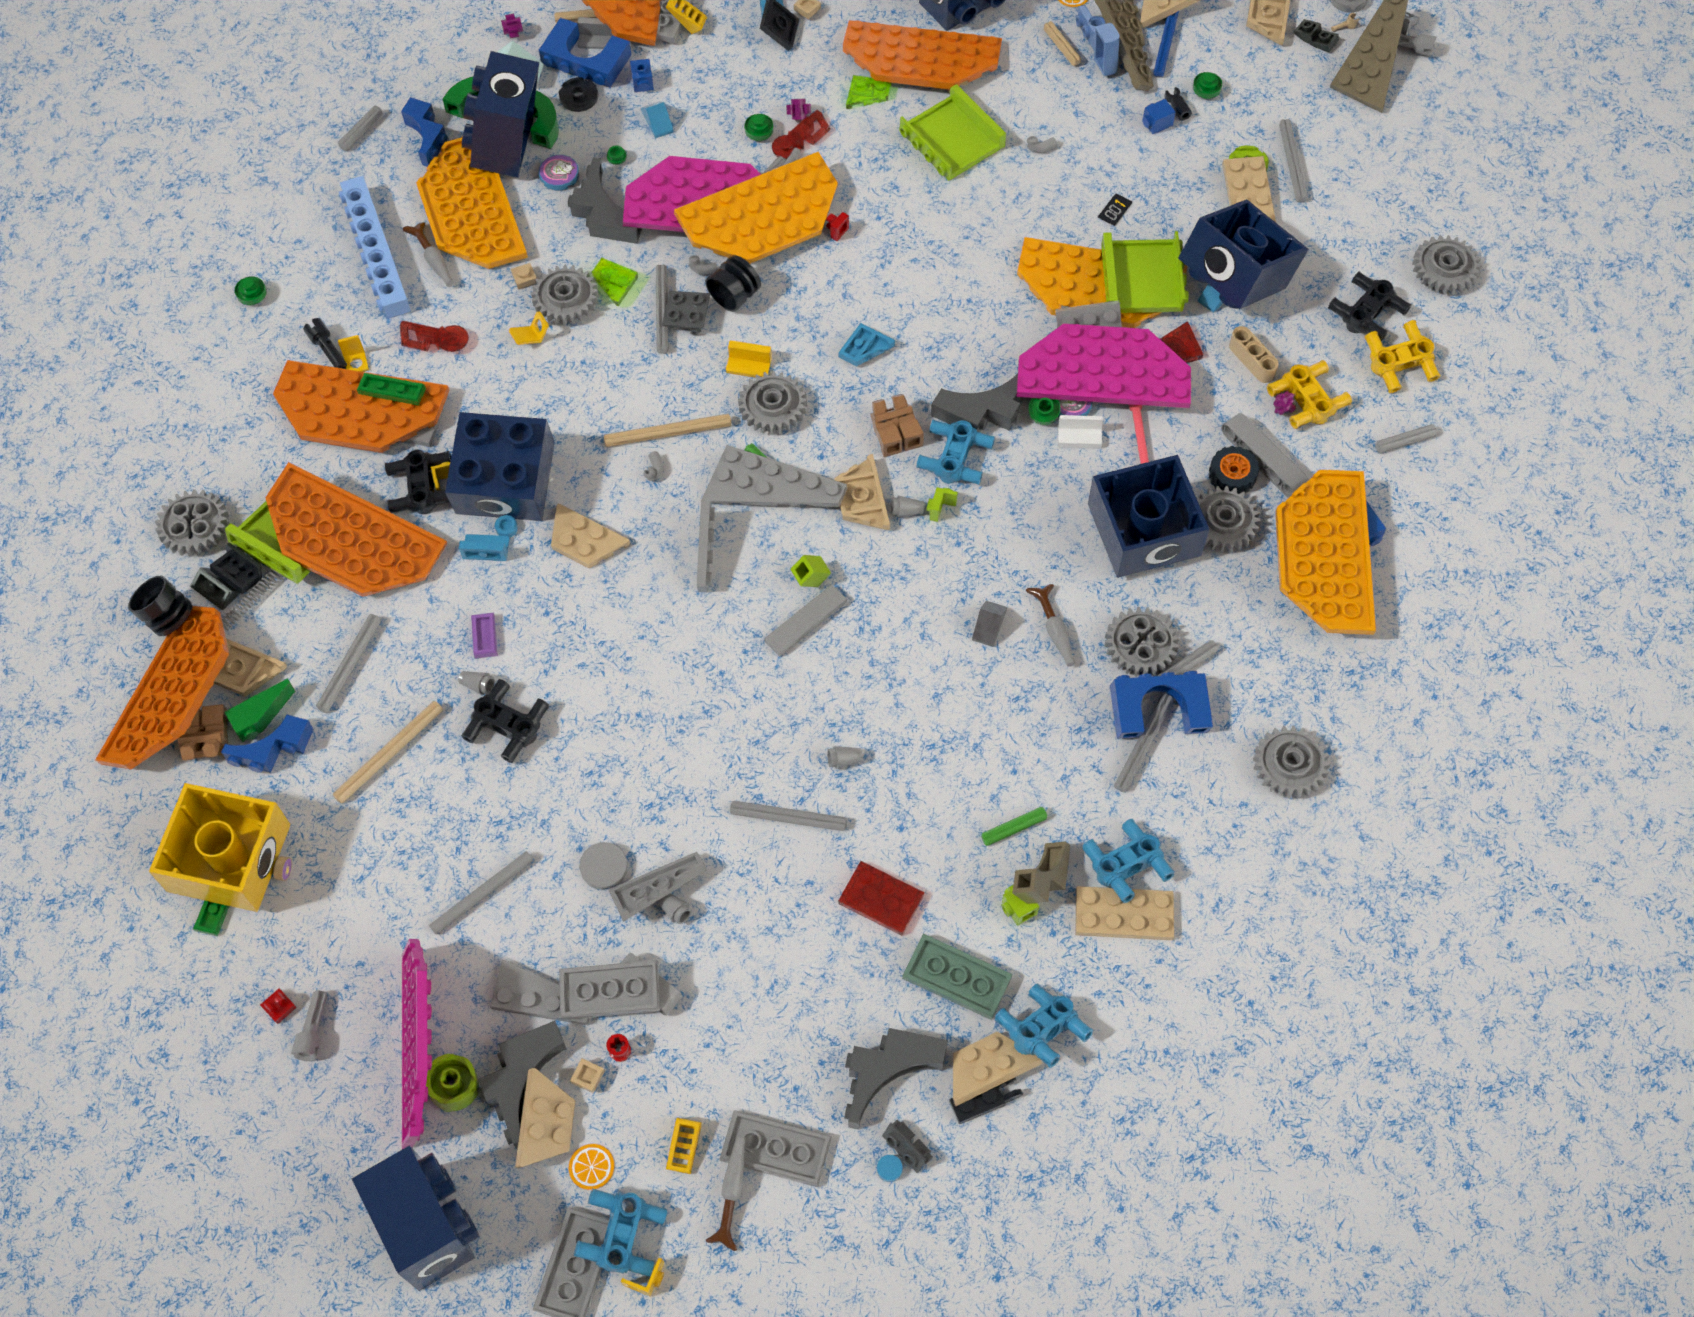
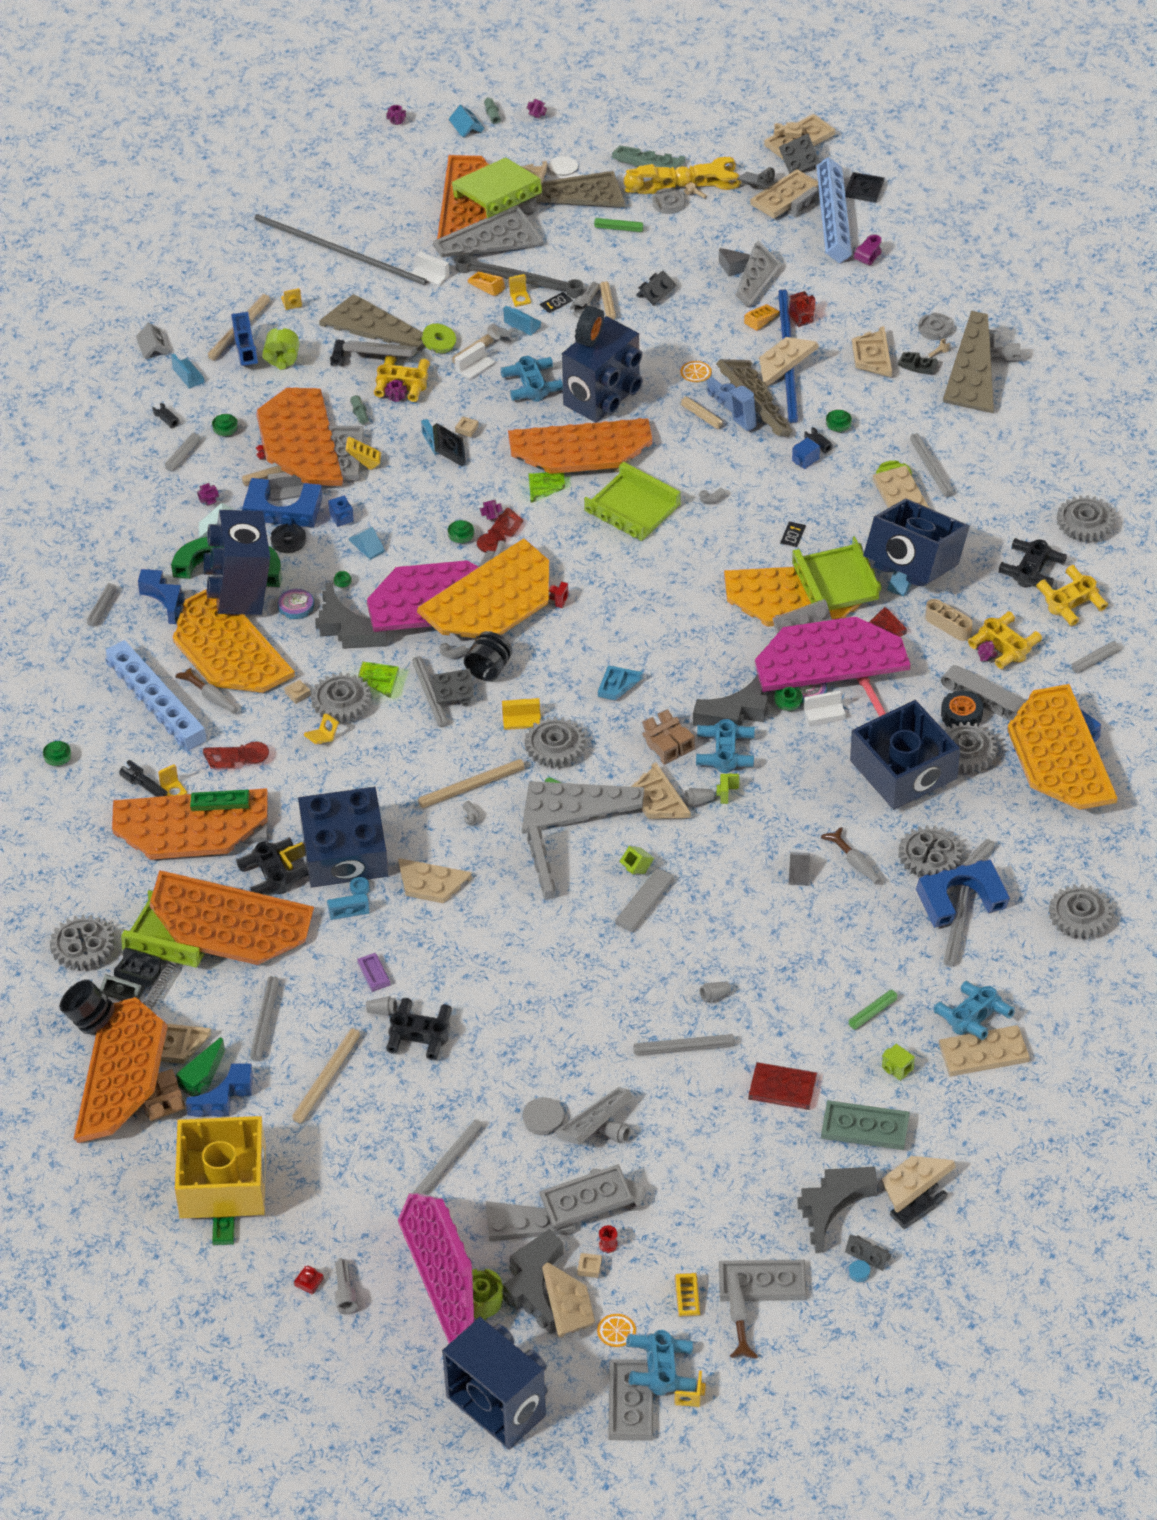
camera: 15 degrees left, 15 degrees down
(282, 868) = (272, 1179): tan tile -> none
(1043, 1025) = (948, 1138): dark azure piece -> none
(1048, 876) = (911, 1033): dark tan arch -> none

